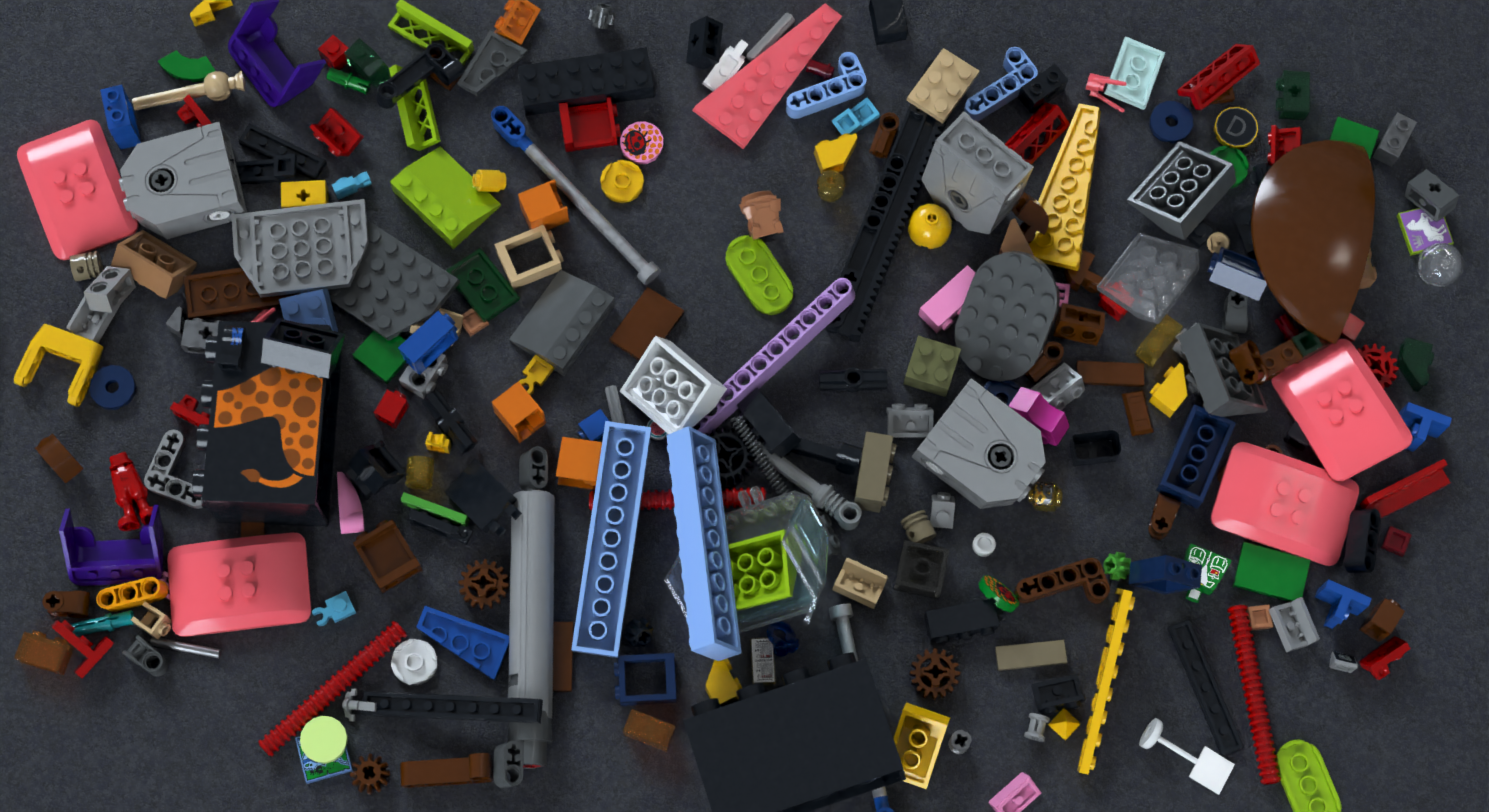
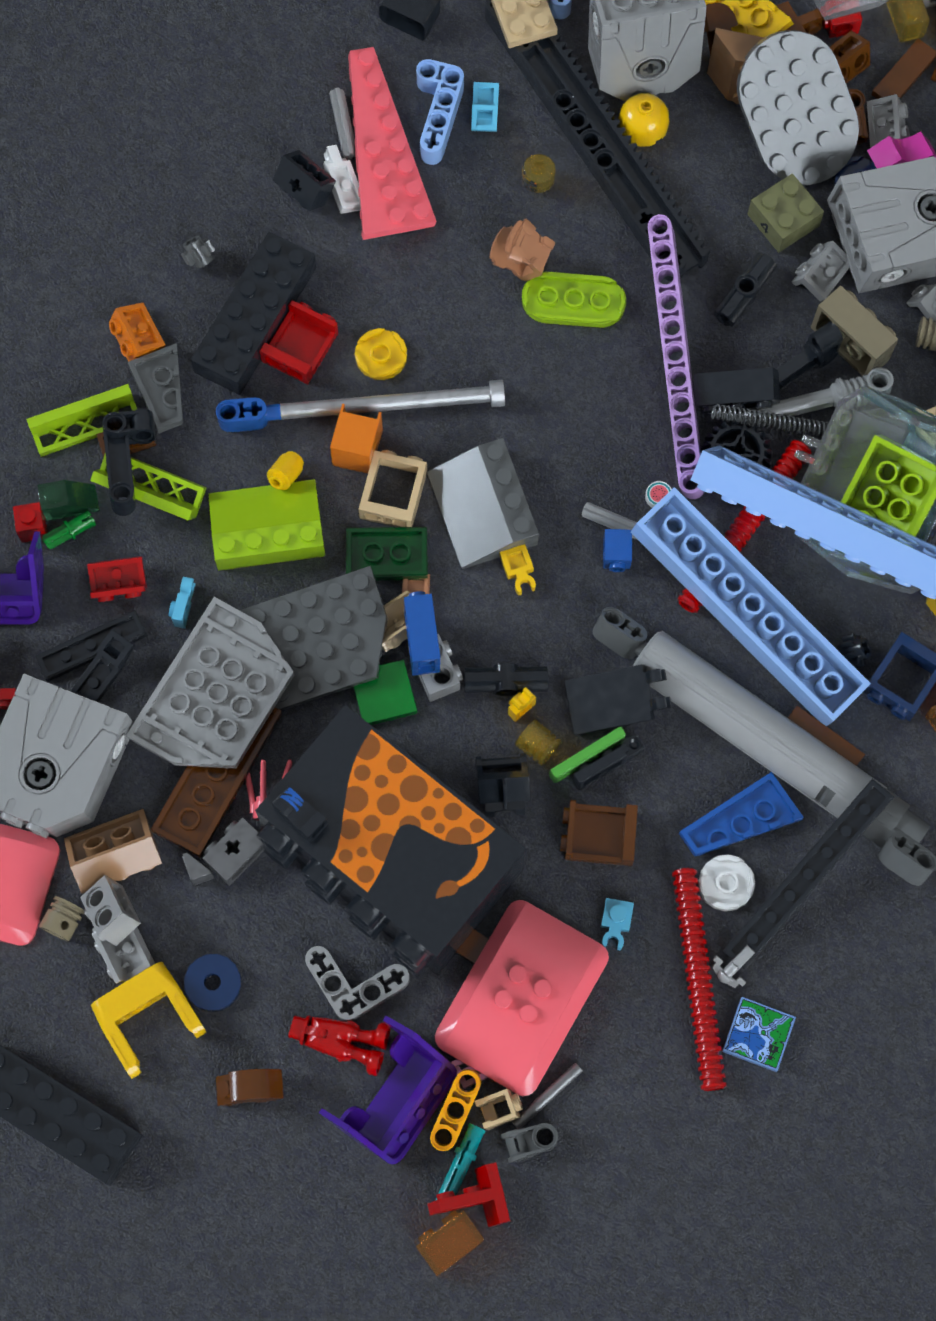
camera: 50 degrees left, 0 degrees up
(71, 603) = (418, 1179): reddish brown piece -> none
(186, 410) = (297, 925): red hinge -> none
(294, 193) = (161, 642): yellow brick -> none
(302, 348) = (354, 745): black slope -> none
(309, 308) = (290, 731): medium blue brick -> none
(323, 739) = (747, 1022): yellowish green tile -> none
(349, 506) = (536, 839): bright pink piece -> none
(378, 769) = (812, 1012): reddish brown gear -> none
(391, 408) = (450, 724): red brick -> none
(443, 772) = (866, 924): reddish brown beam -> none
(493, 585) = (690, 754): reddish brown gear -> none
(519, 412) = (549, 605): orange piece -> none
(578, 463) = (644, 586): orange piece -> none
(641, 142) = (356, 309): tile -> none
(648, 318) = (547, 433): reddish brown tile -> none
(672, 387) = (636, 450): white slope -> none
(820, 69) = (411, 102): dark red pin -> none
(835, 153) = (509, 149): yellow slope -> none
(884, 136) = (525, 94): reddish brown piece -> none
(947, 301) = (733, 151): bright pink brick -> none

